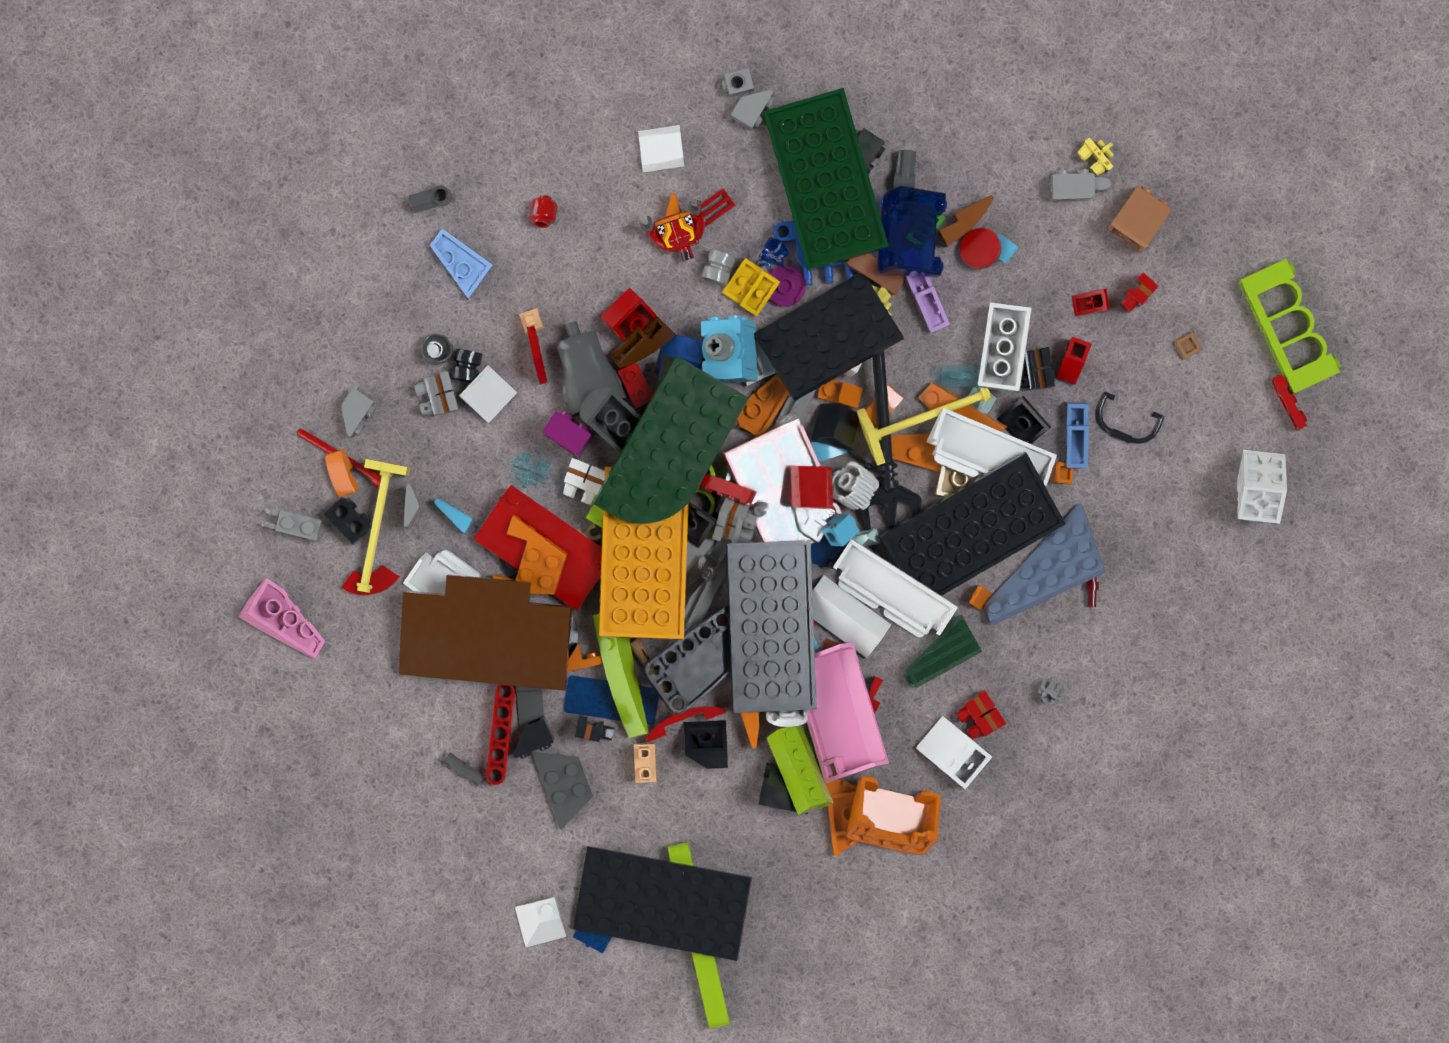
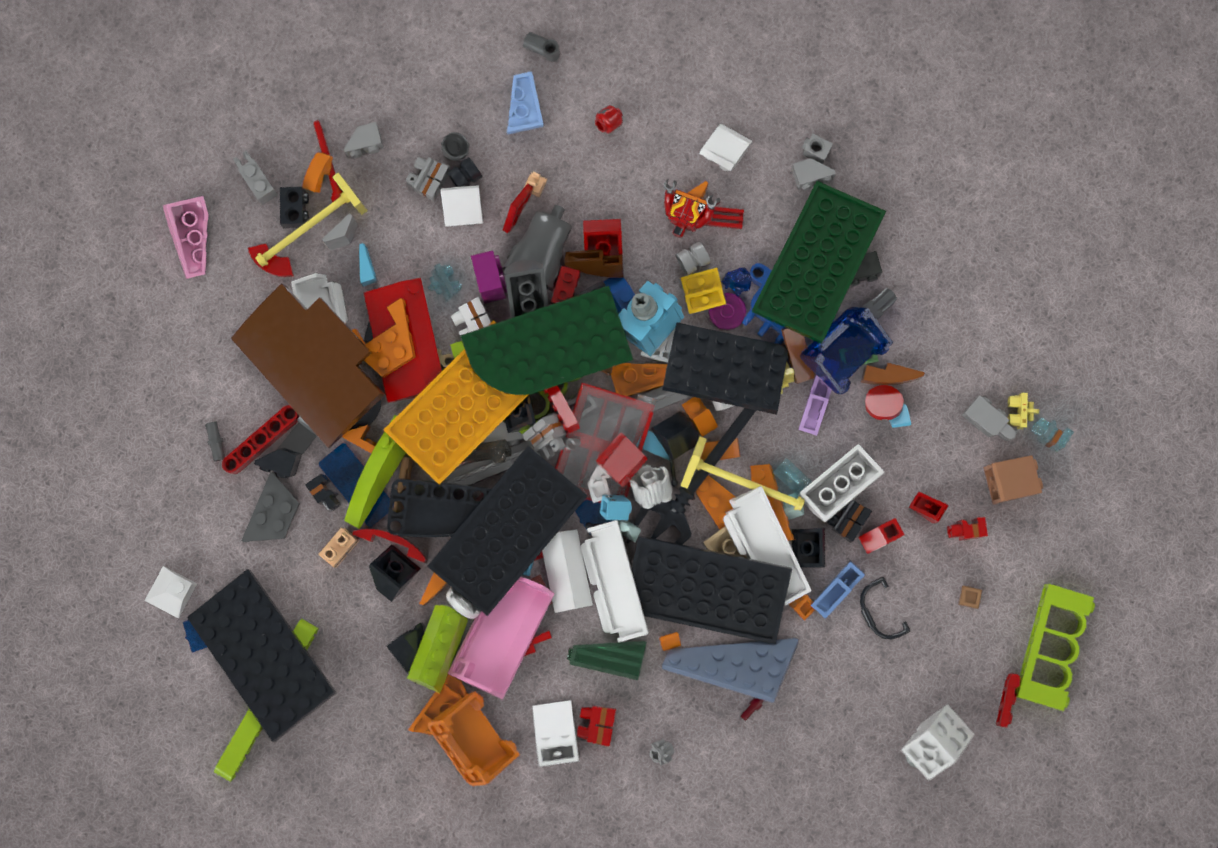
camera: 45 degrees right, 5 degrees down
(1138, 156) = (1050, 435): none -> clear light blue hips

